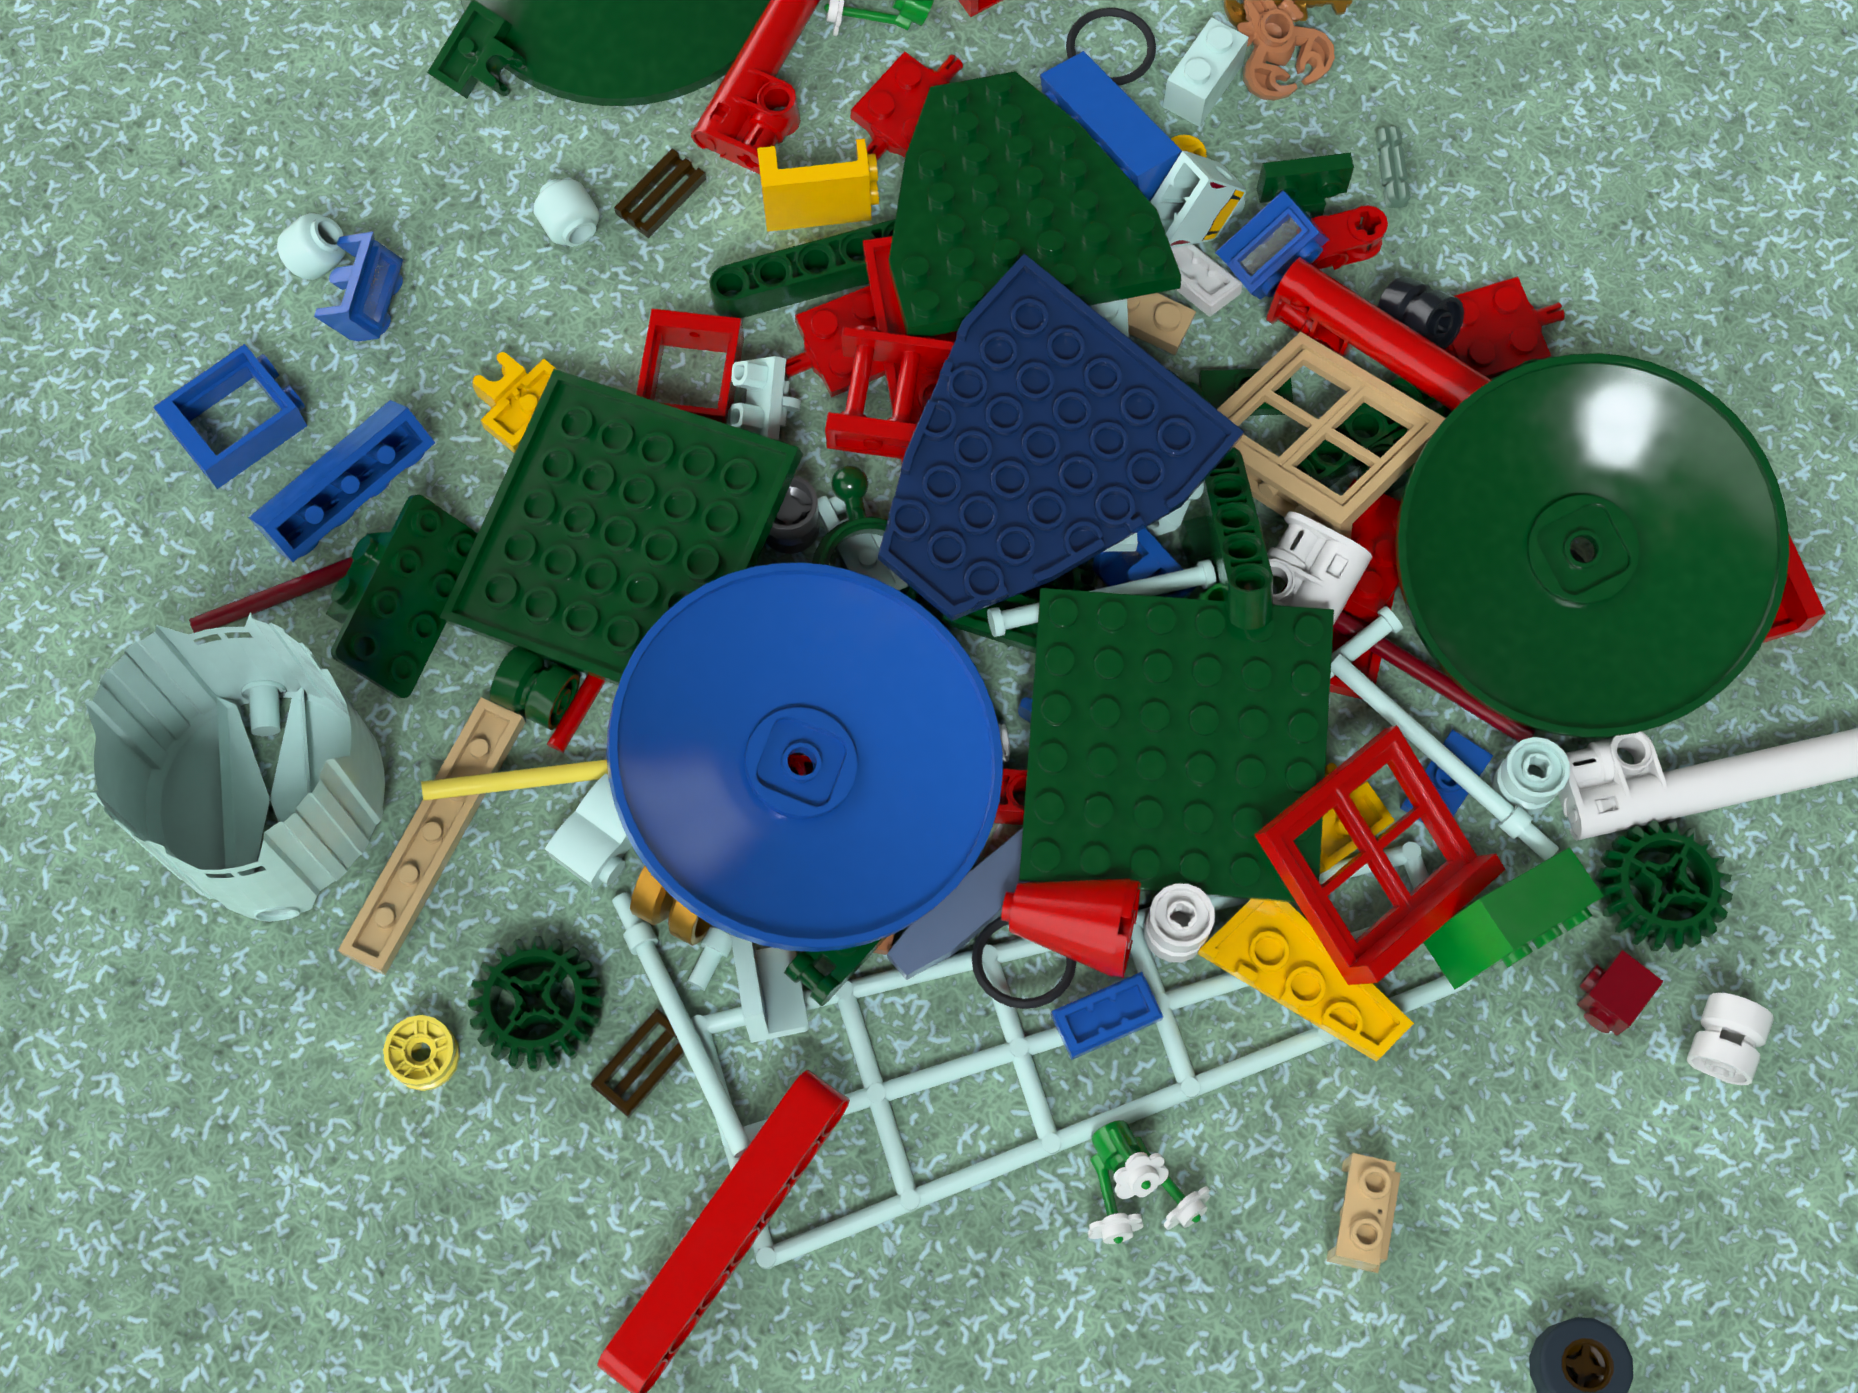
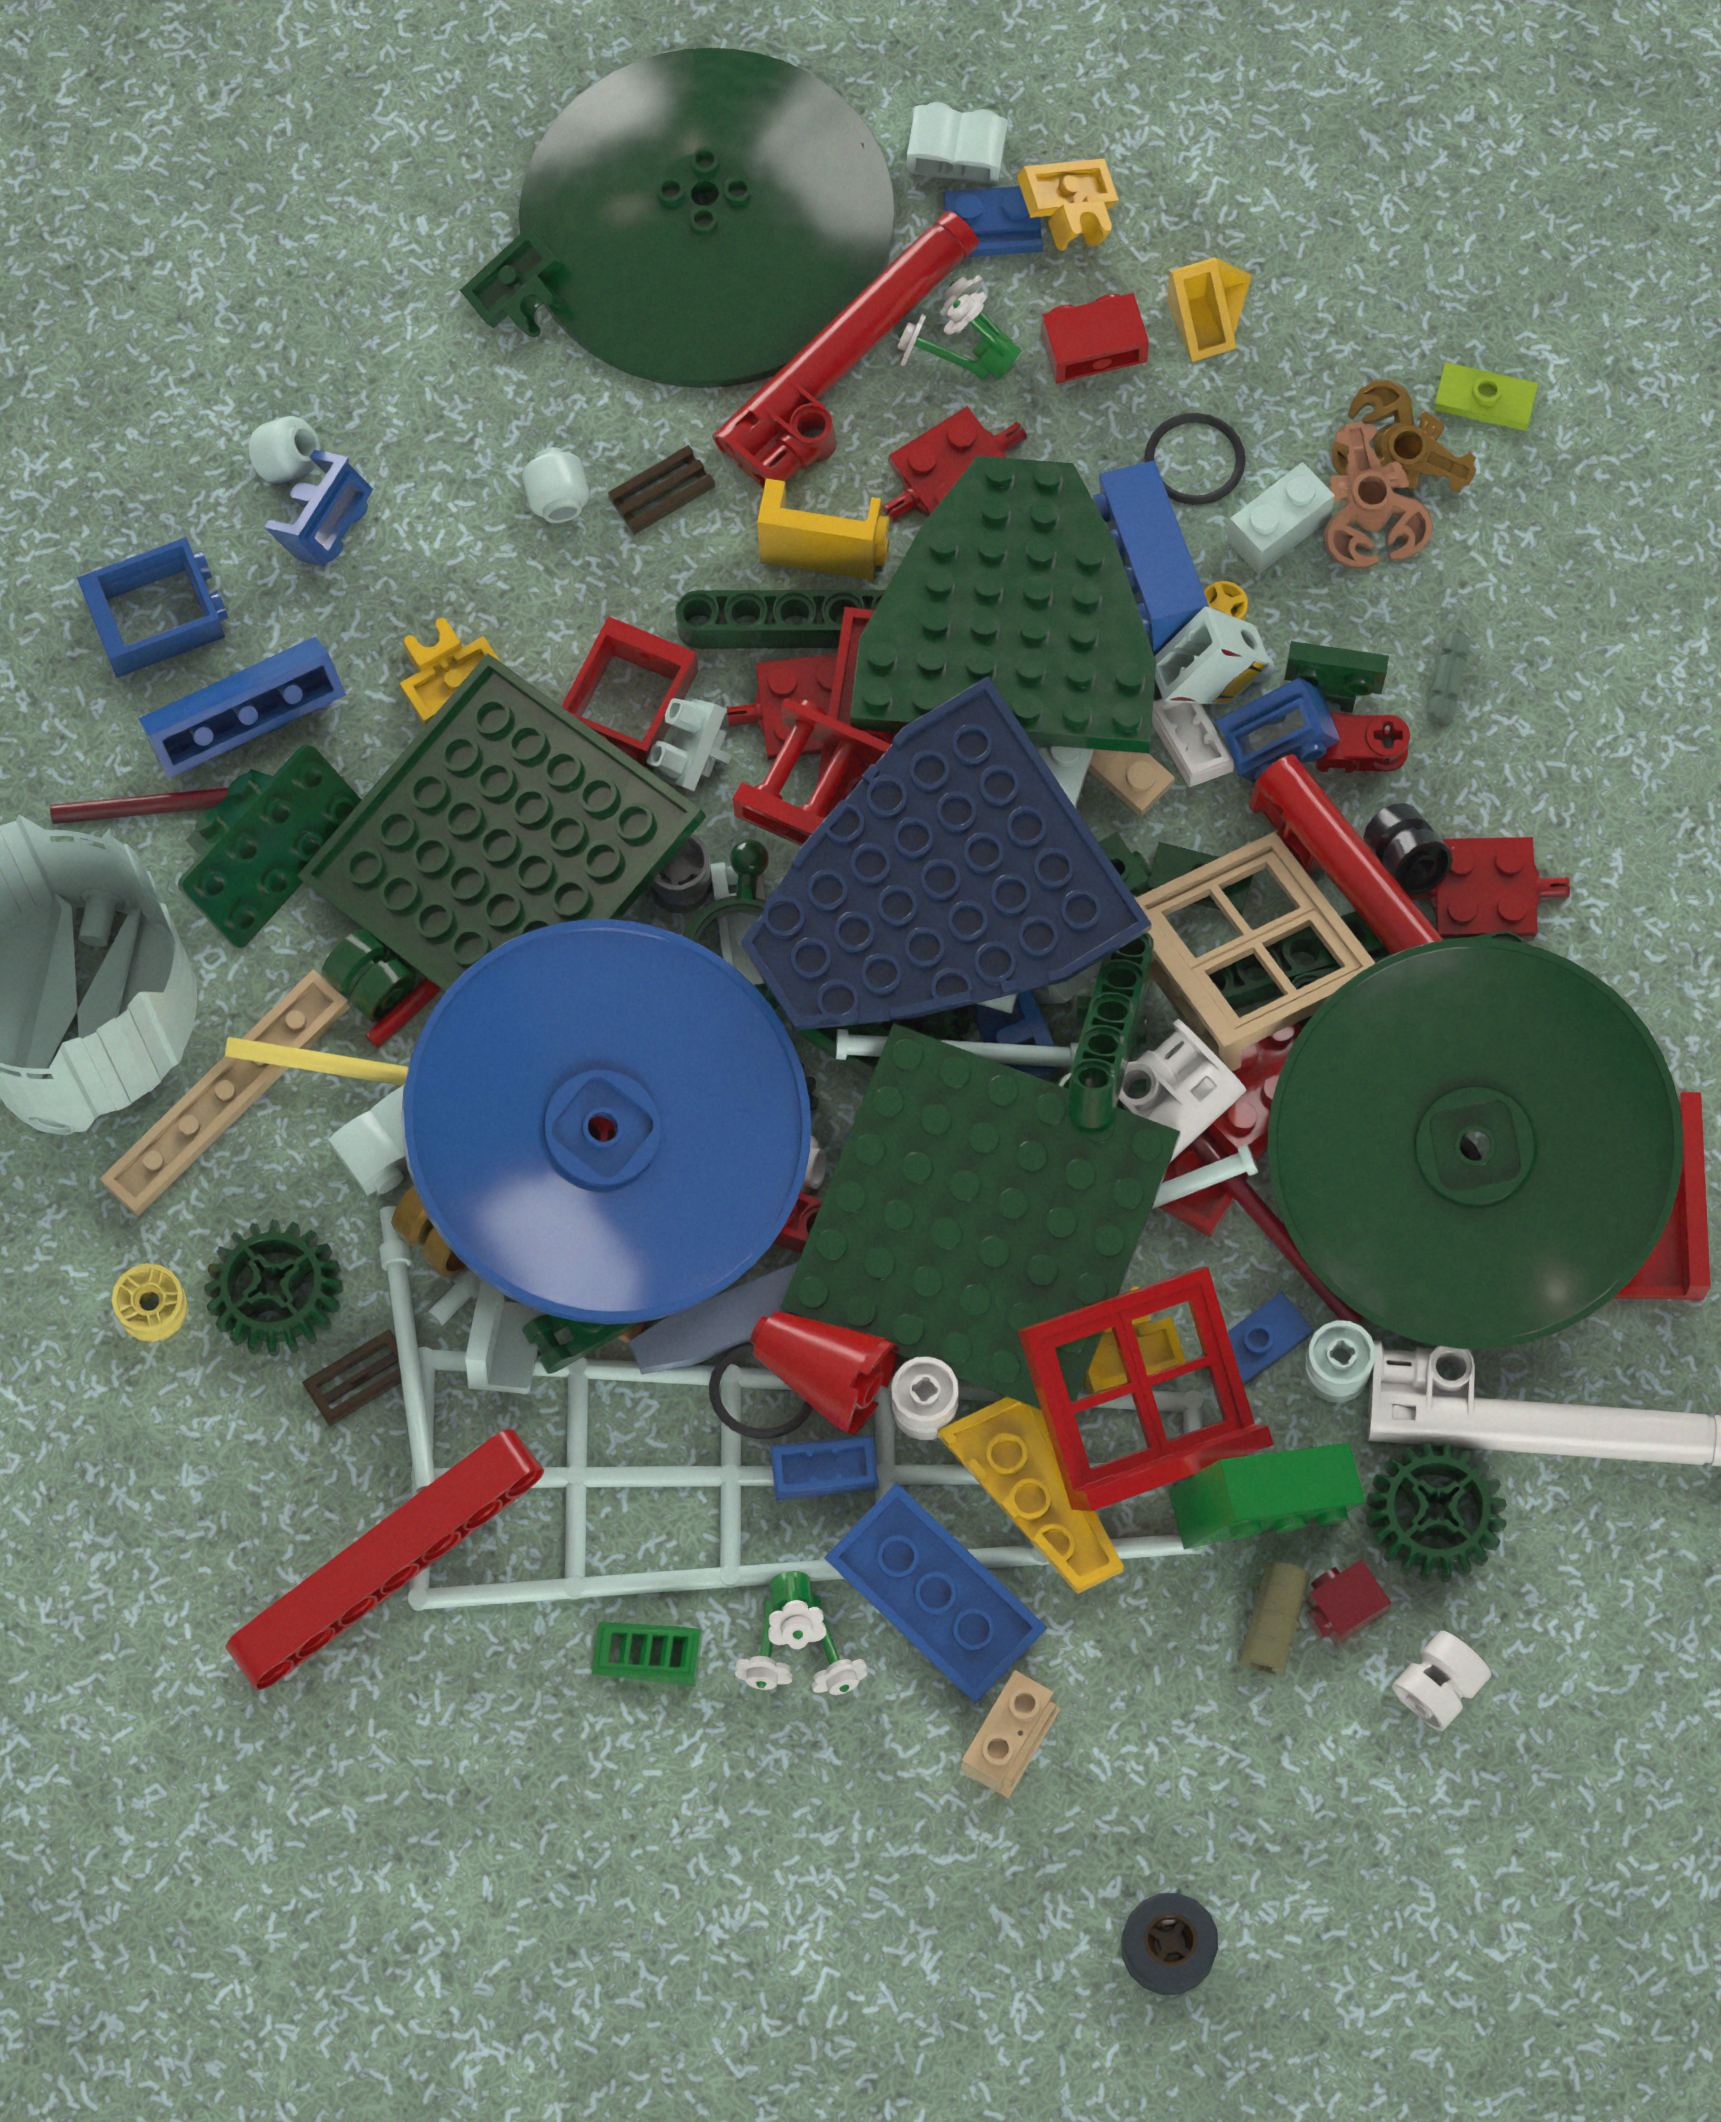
camera: 20 degrees right, 0 degrees up
(1042, 1232) = (683, 1675): none -> green slope
(1249, 1101) = (935, 1593): none -> blue plate
(1513, 820) = (1307, 1401): light aqua bar -> none
(1559, 1027) = (1275, 1618): none -> olive axle

